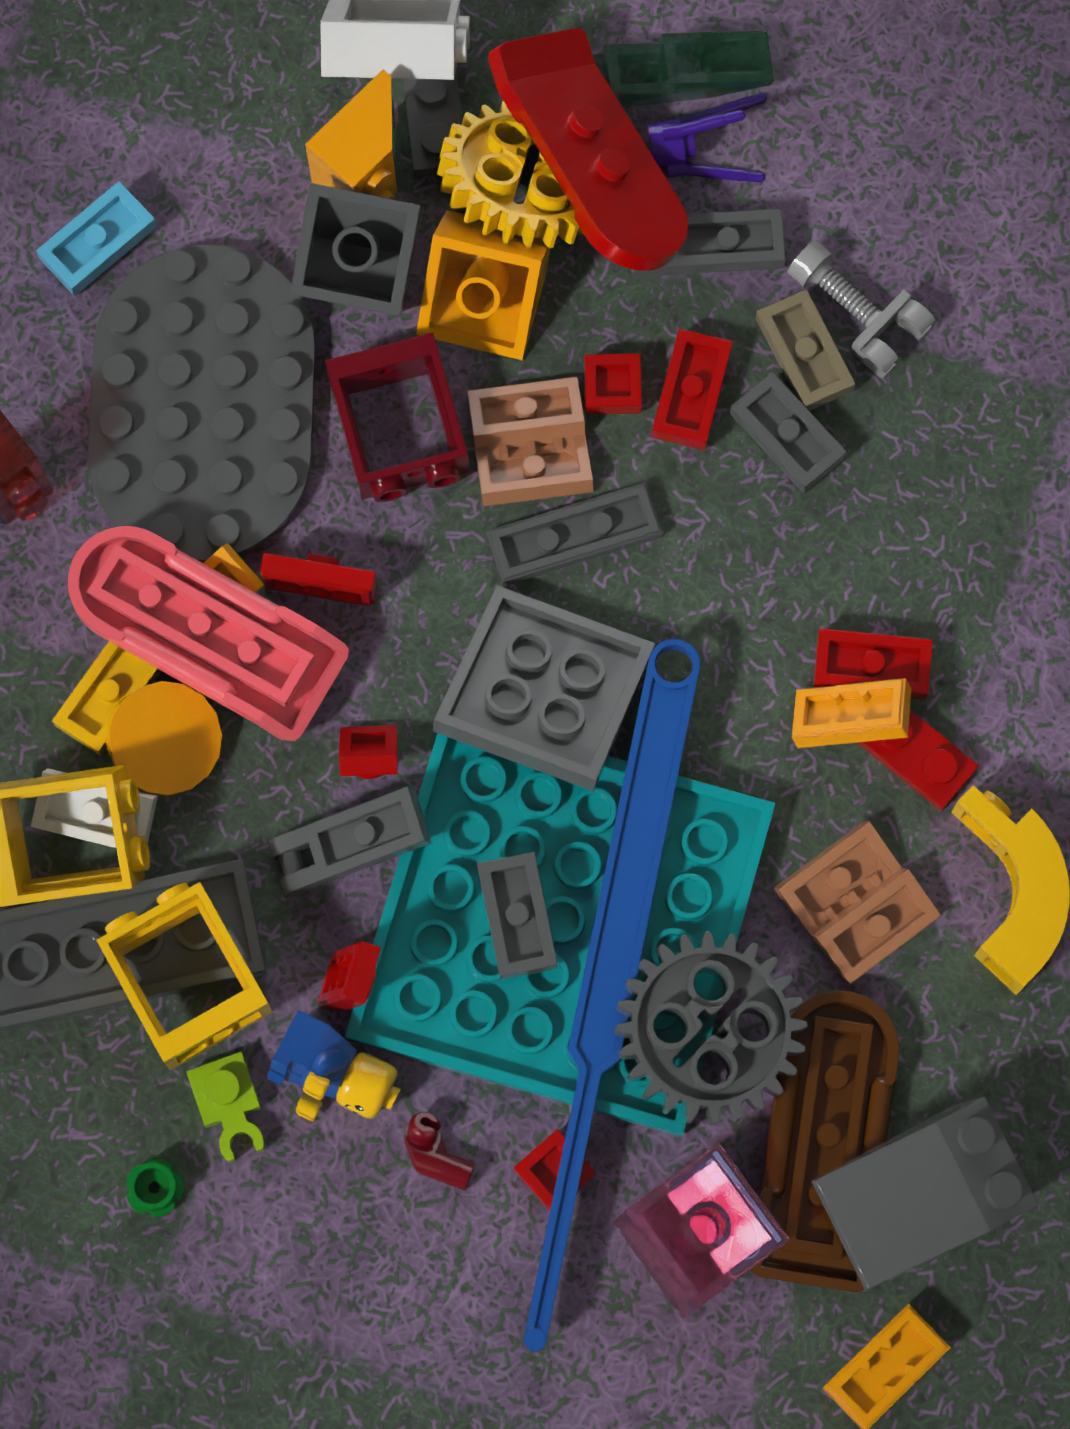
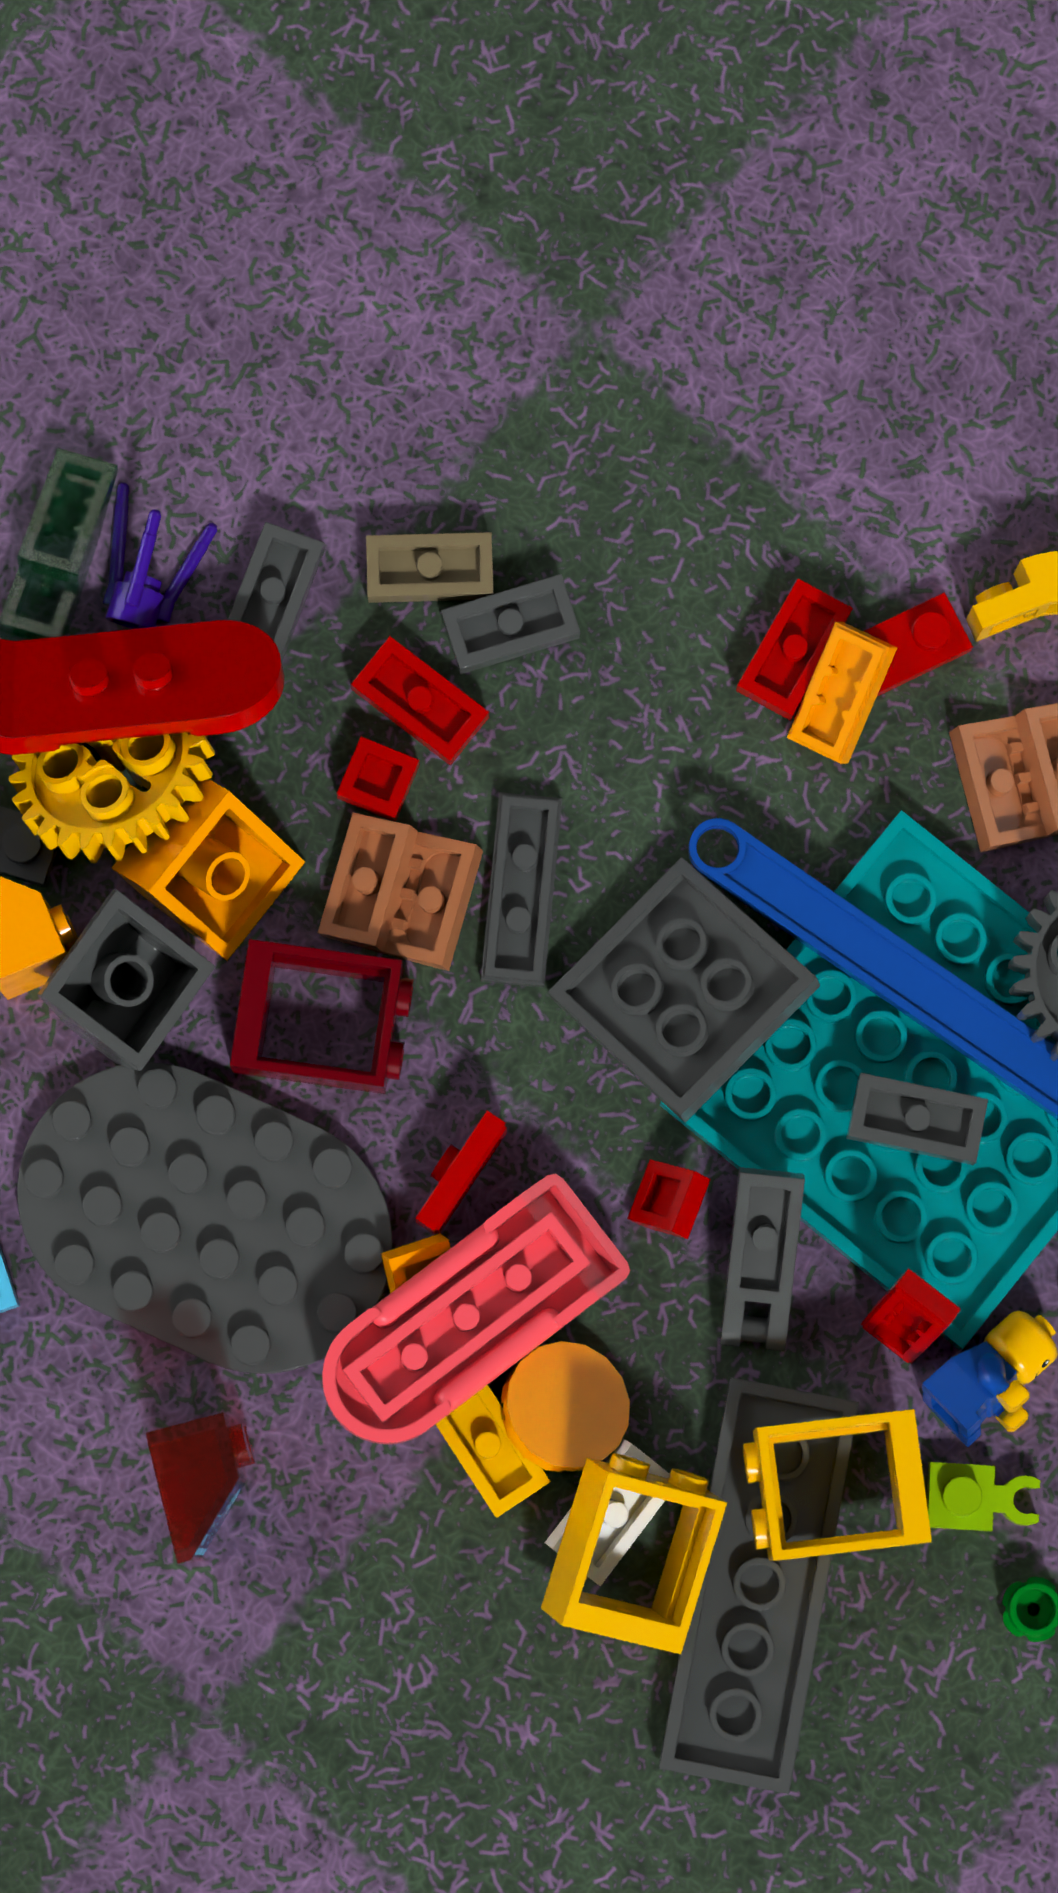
camera: 70 degrees left, 5 degrees up
(814, 267) = (343, 516): light grey bar -> none

